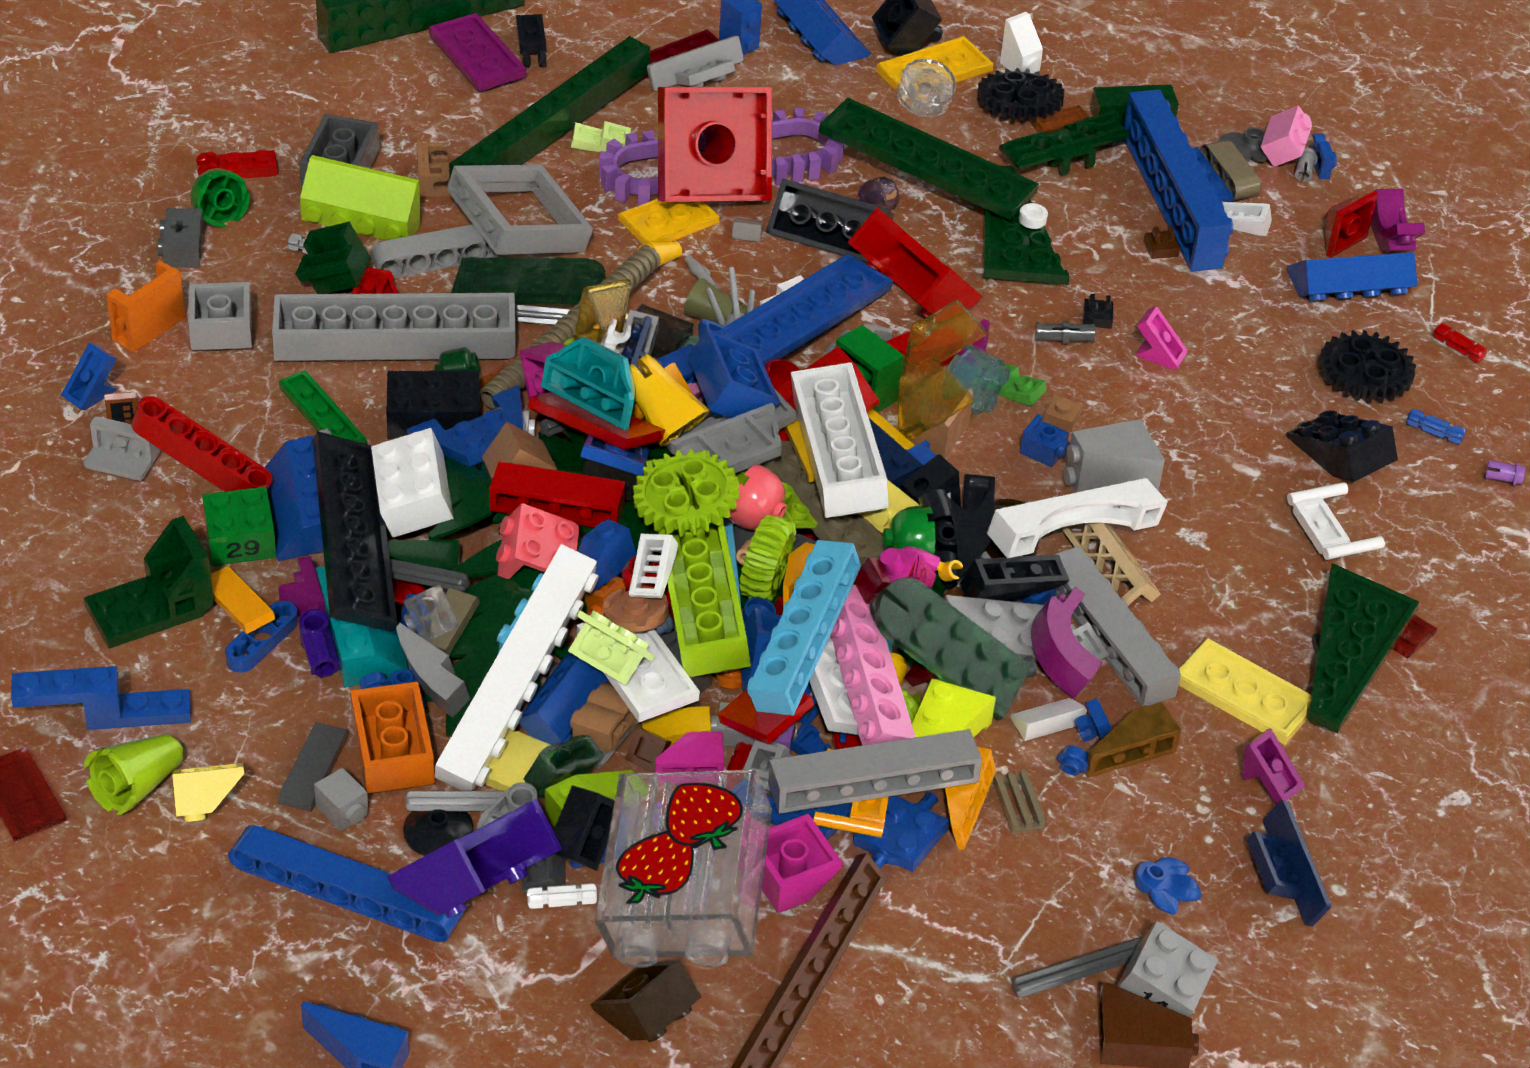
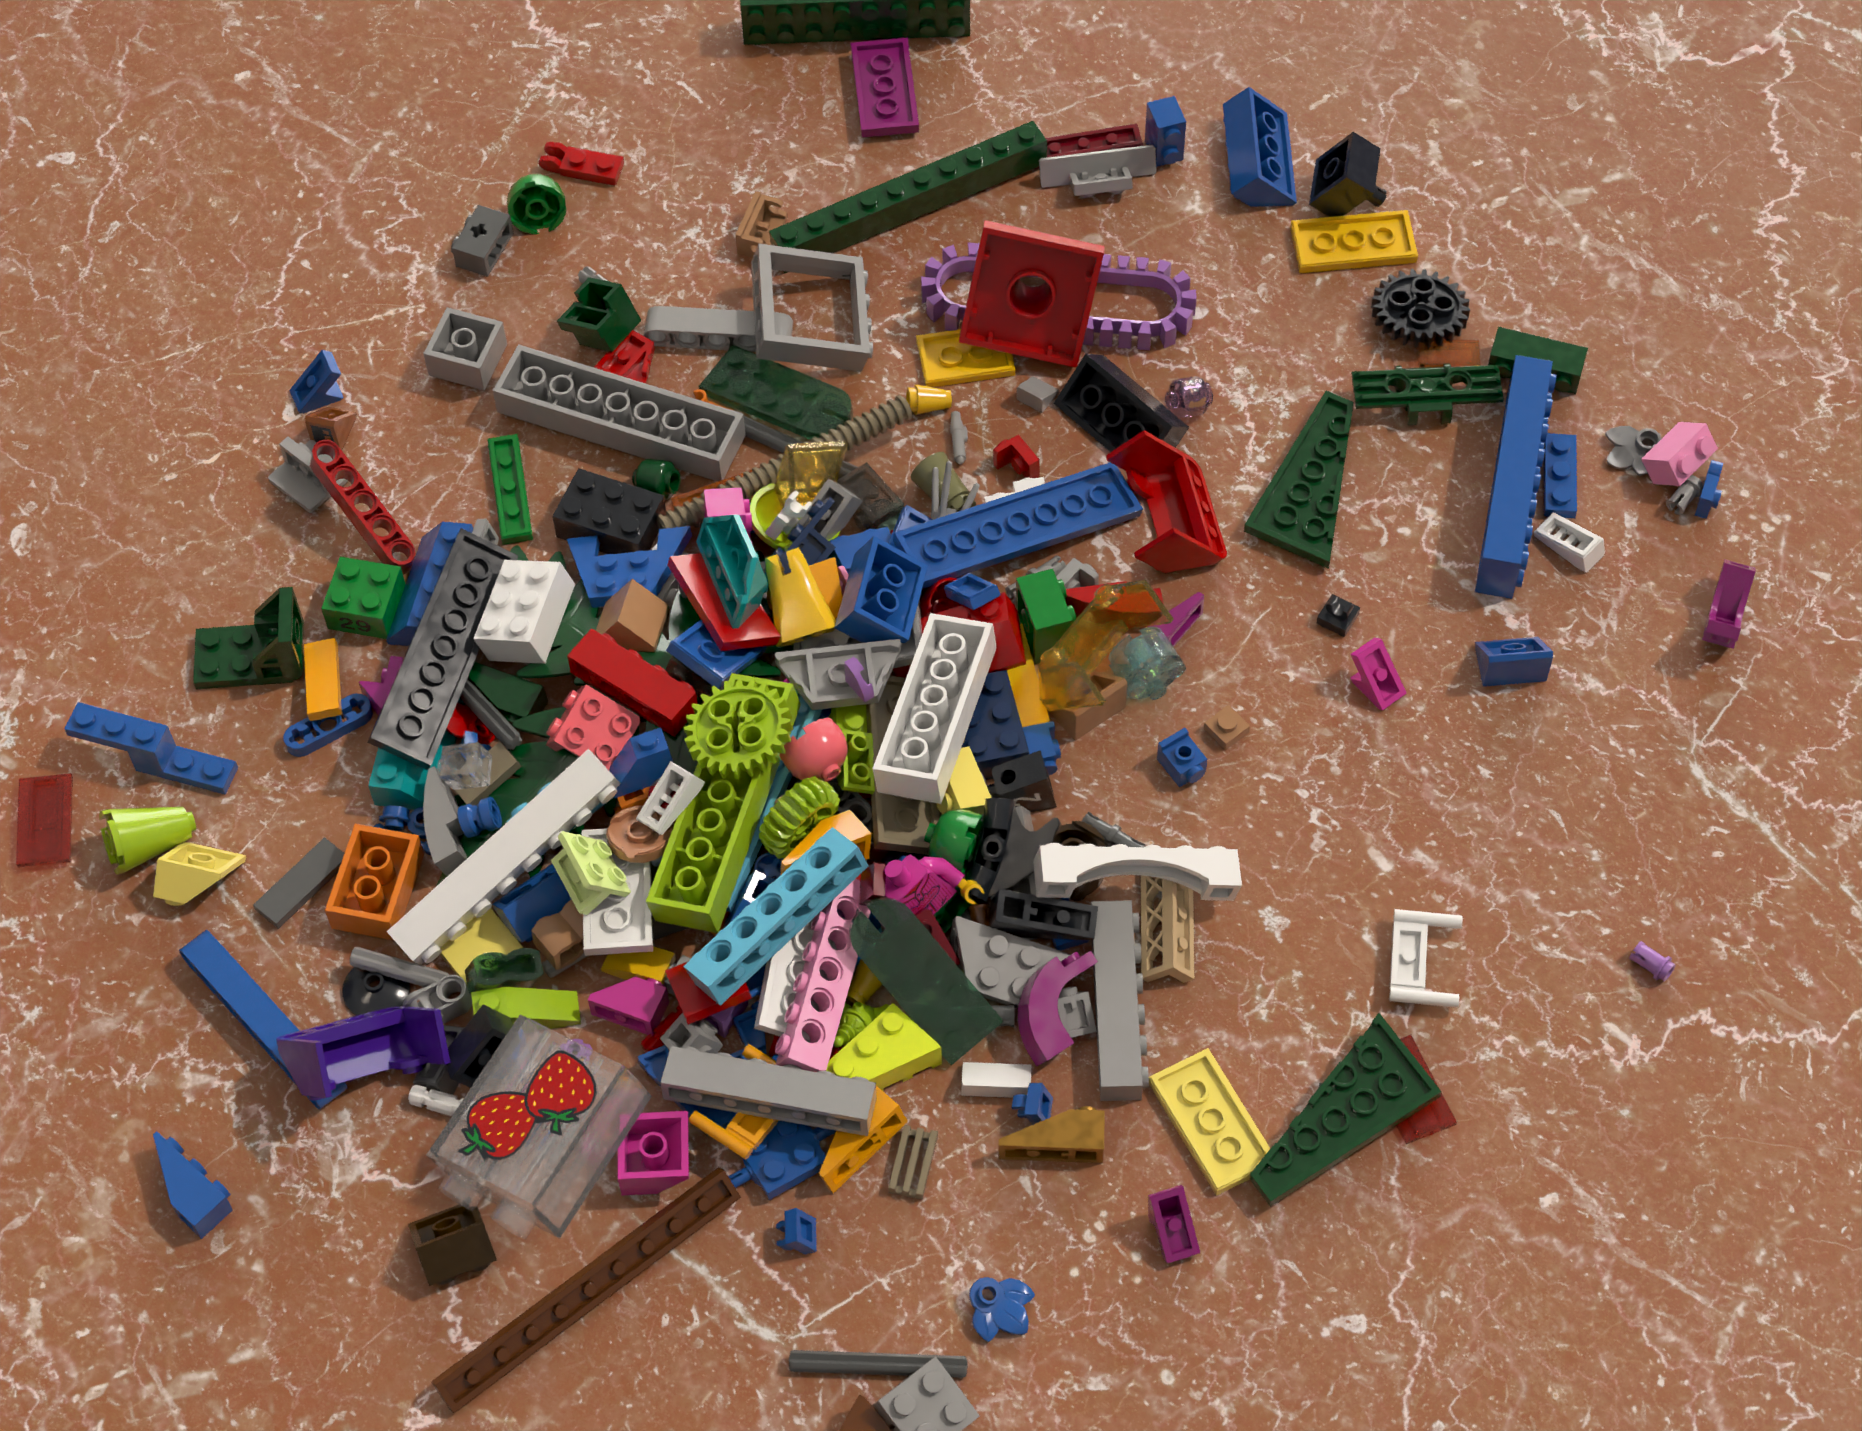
camera: 30 degrees right, 15 degrees up
(148, 310) = (402, 322): orange panel -> none
(318, 643) = (363, 754): dark purple piece -> none
(341, 799) = (302, 930): light grey brick -> none
(344, 141) = (674, 186): dark grey brick -> none
(371, 199) = (664, 250): lime slope -> none
(466, 652) = (479, 817): none -> blue wheel
(531, 38) = (948, 85): black hinge -> none
(596, 139) = (947, 232): yellowish green slope -> none
(645, 748) = (597, 975): reddish brown plate -> none
(760, 435) = (856, 681): none -> medium lavender tile
(764, 270) = (1019, 455): none -> red bracket
(806, 356) = (971, 591): none -> blue tile
(926, 88) = (1320, 254): clear wheel -> none
(928, 158) = (1260, 370): dark green plate -> none
(959, 886) = (799, 1232): none -> blue tile
(975, 490) = (1076, 799): black plate -> none
(1021, 44) = (1453, 246): white slope -> none
(1022, 388) = (1198, 678): bright green slope -> none
(1033, 216) = (1333, 474): white tile -> none
(1065, 332) = (1304, 637): dark grey pin -> none
(1073, 760) = (988, 1138): blue plate -> none
(1112, 456) = (1226, 812): light grey slope -> none
(1161, 243) = (1460, 549): reddish brown tile -> none
(1232, 169) = (1593, 477): dark tan beam -> none
(1258, 305) = (1513, 661): none -> blue slope
(1287, 864) = (1121, 1333): dark blue bracket -> none
(1346, 444) = (1496, 868): black slope -> none
(1348, 223) = (1675, 591): red slope -> none
(1354, 275) = (1642, 659): blue slope -> none
(1367, 366) = (1583, 779): black gear -> none
(1435, 426) = (1614, 878): blue axle -> none
(1460, 343) = (1711, 781): red axle -> none

